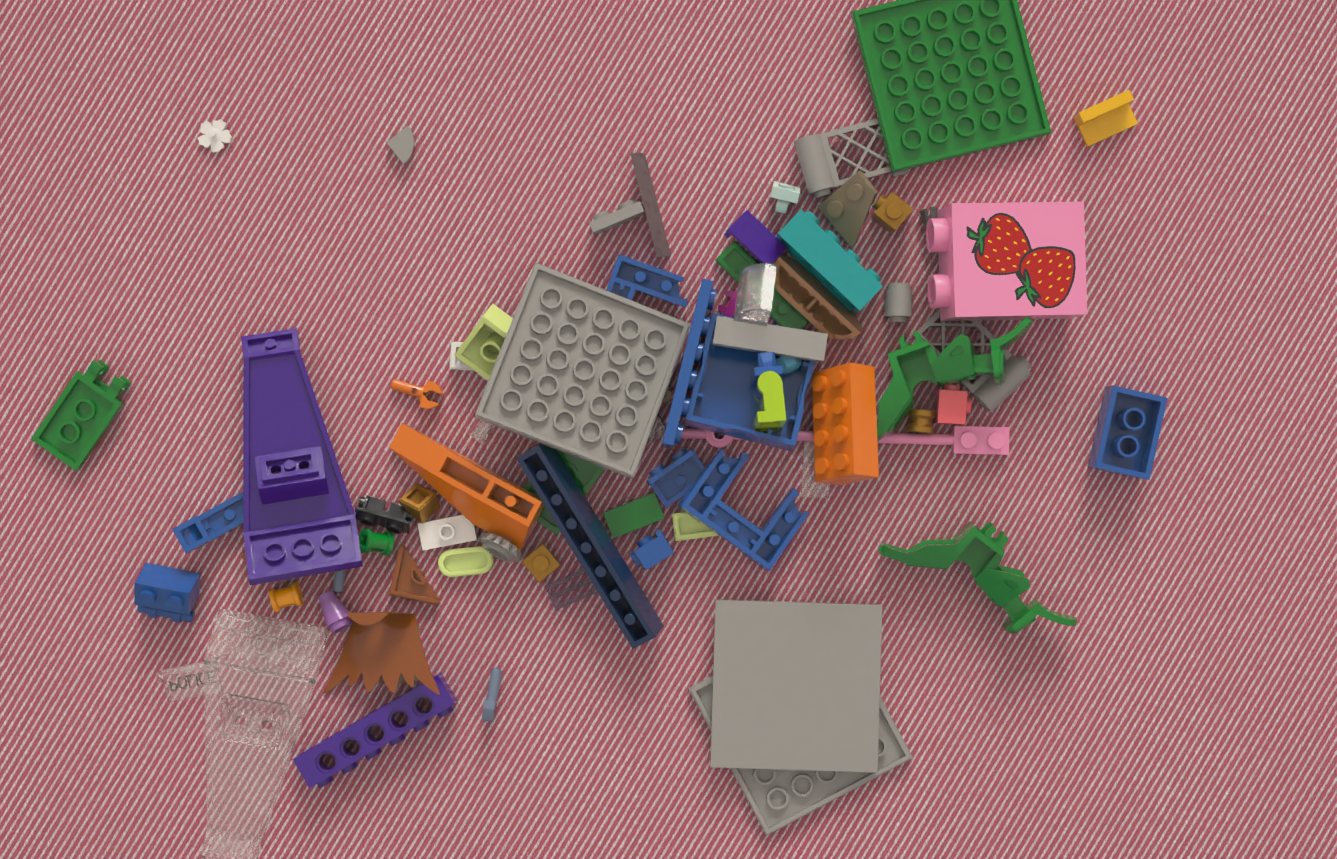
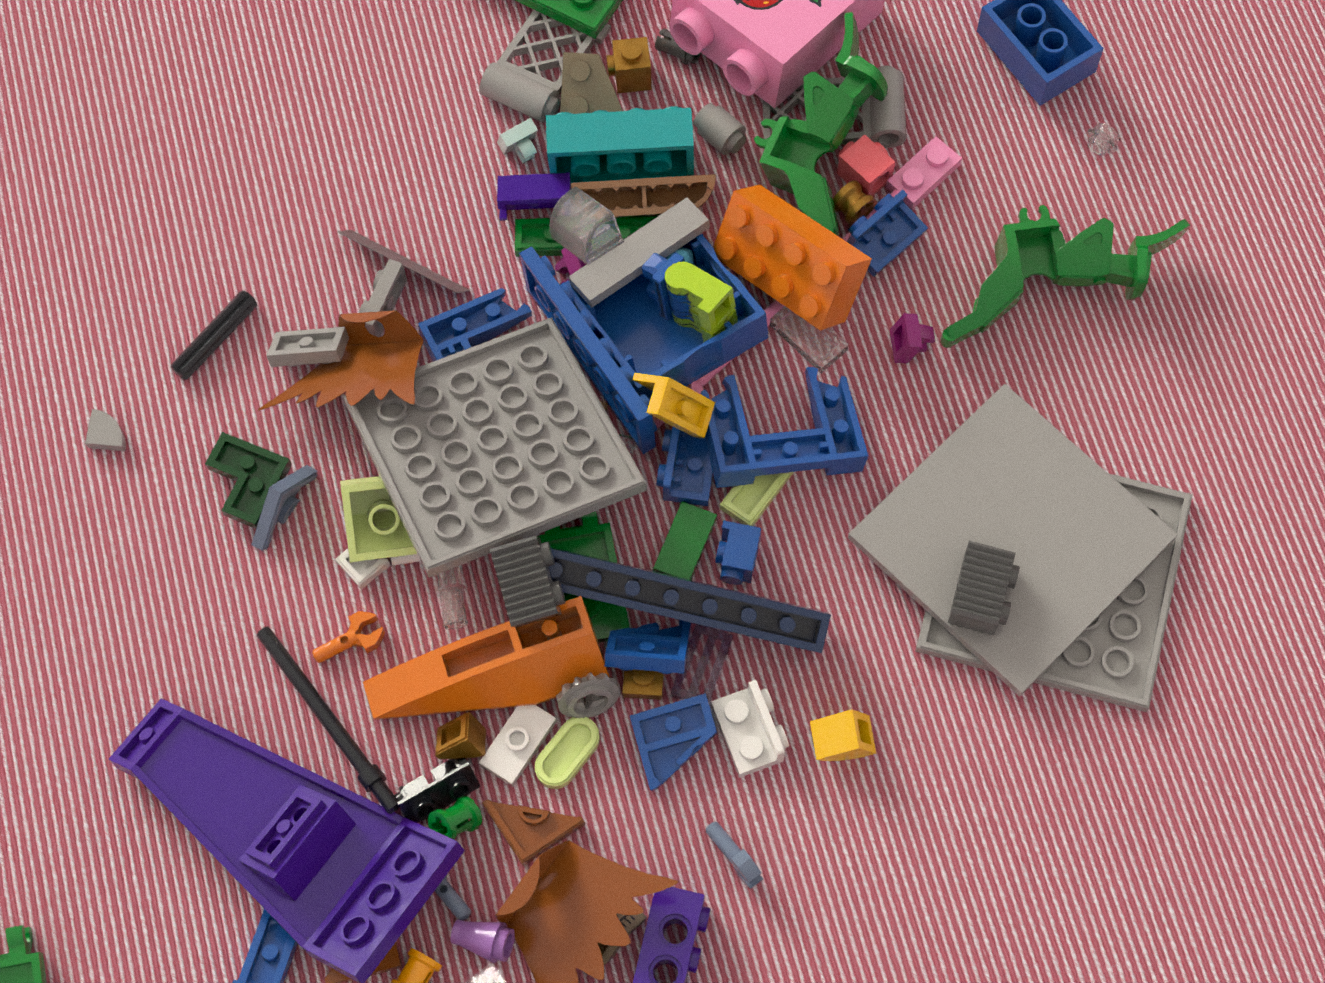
camera: 45 degrees left, 20 degrees down
(357, 477) = (369, 775): none -> black bar
(454, 283) = (280, 504): none -> sand blue tile
(457, 252) = (253, 471): none -> dark green plate
(511, 144) = (213, 335): none -> black axle
(518, 471) = (526, 580): none -> dark grey brick
(522, 608) = (672, 736): none -> blue wing
(550, 206) = (308, 347): none -> light grey plate
(552, 556) = (649, 648): none -> blue wing
(562, 253) = (366, 364): none -> dark orange piece
(563, 642) = (749, 729): none -> white bracket
(604, 695) = (843, 736): none -> yellow brick
(695, 449) = (677, 404): none -> yellow panel
(746, 700) = (983, 588): none -> dark grey brick
(864, 527) = (909, 338): none -> magenta tile
(917, 457) = (886, 232): none -> blue bracket
(1096, 523) = (1102, 139): none -> clear plate

